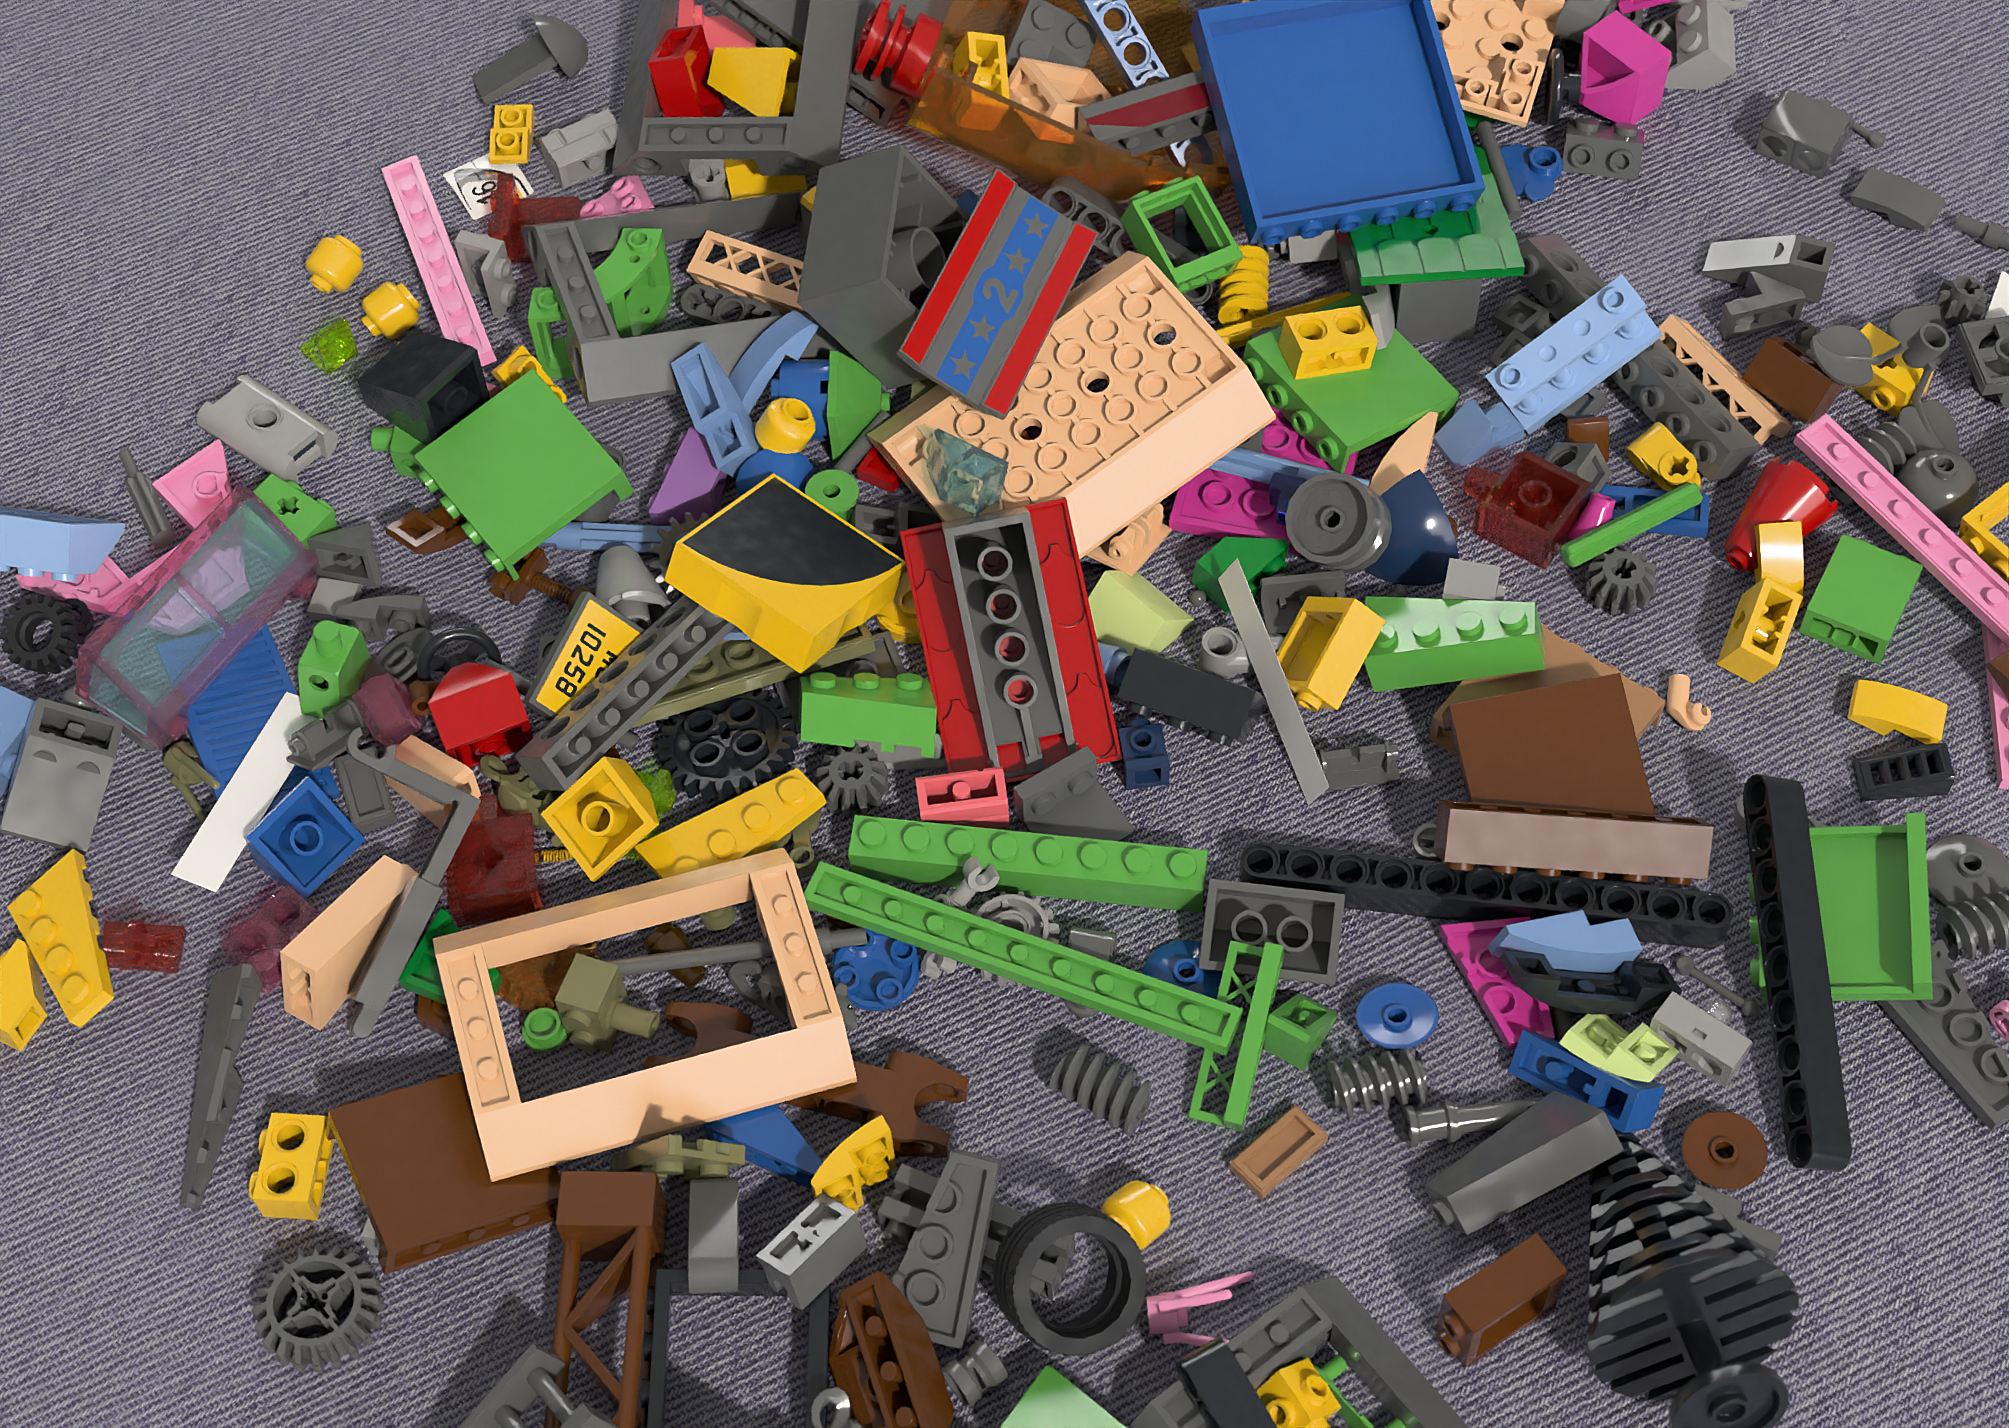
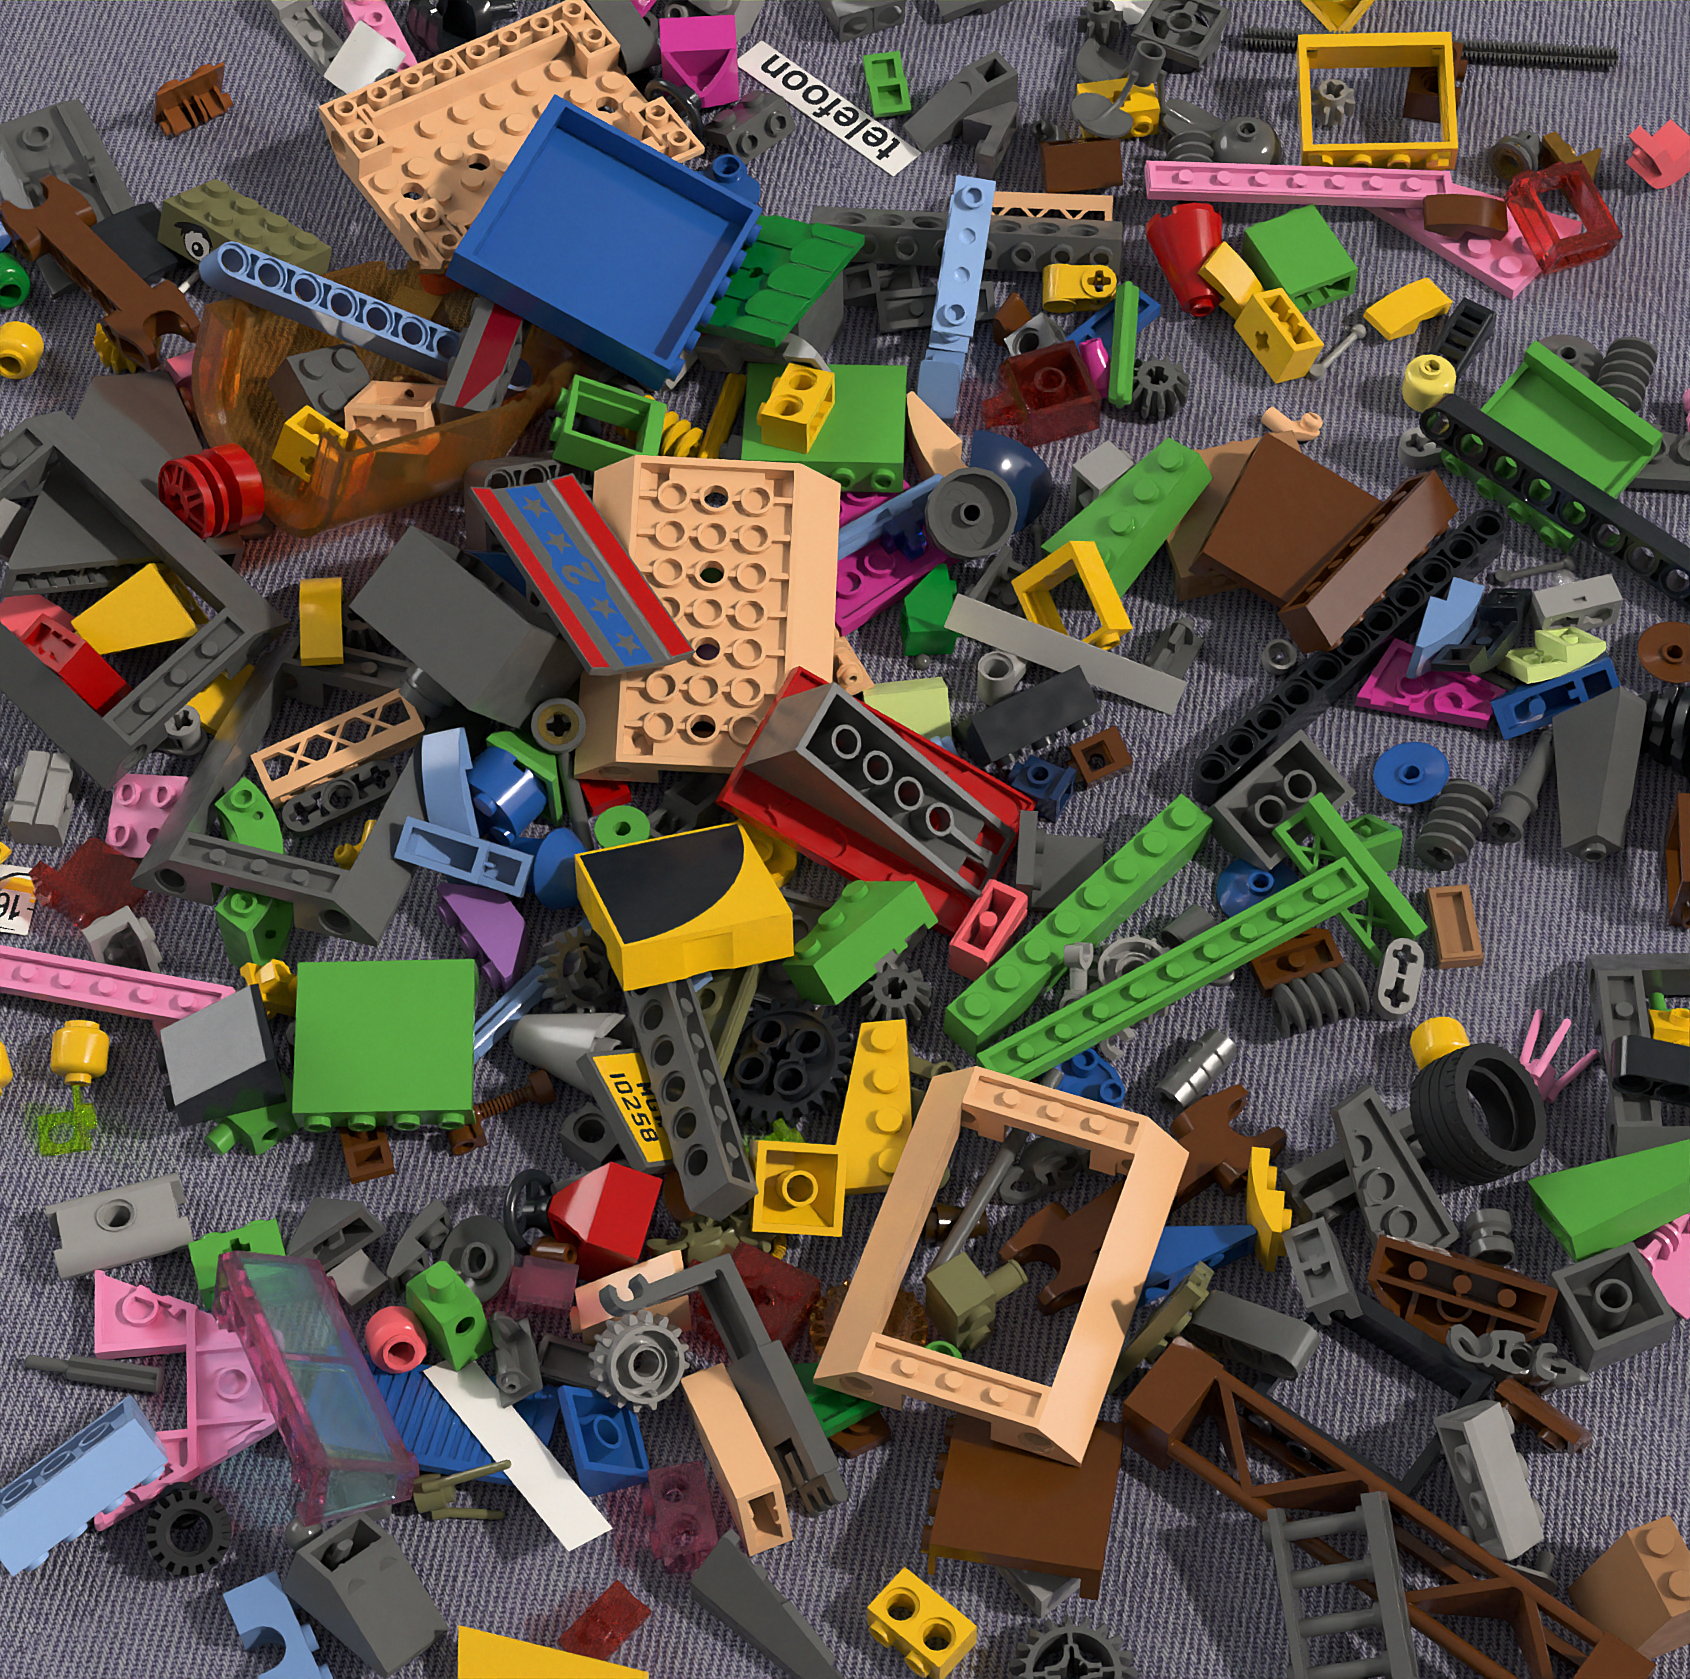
camera: 55 degrees left, 0 degrees up
(283, 651) = (396, 1339): none -> coral head
(355, 822) = (662, 1363): none -> light grey gear
(785, 426) = (532, 818): yellow head -> none
(881, 383) = (544, 718): none -> piece
(959, 1040) = (1195, 1072): none -> flat silver axle
(964, 473) = (713, 717): clear light blue slope -> none
(1135, 1048) = (1295, 958): none -> reddish brown wing
(1176, 1128) = (1407, 981): none -> light grey beam
(1197, 762) = (1105, 745): none -> reddish brown brick
(1681, 188) = (828, 108): none -> white sticker
(1743, 207) = (886, 84): none -> bright green slope
(1765, 689) = (1317, 371): none -> light grey hinge
(1826, 774) = (1426, 380): none -> light yellow head

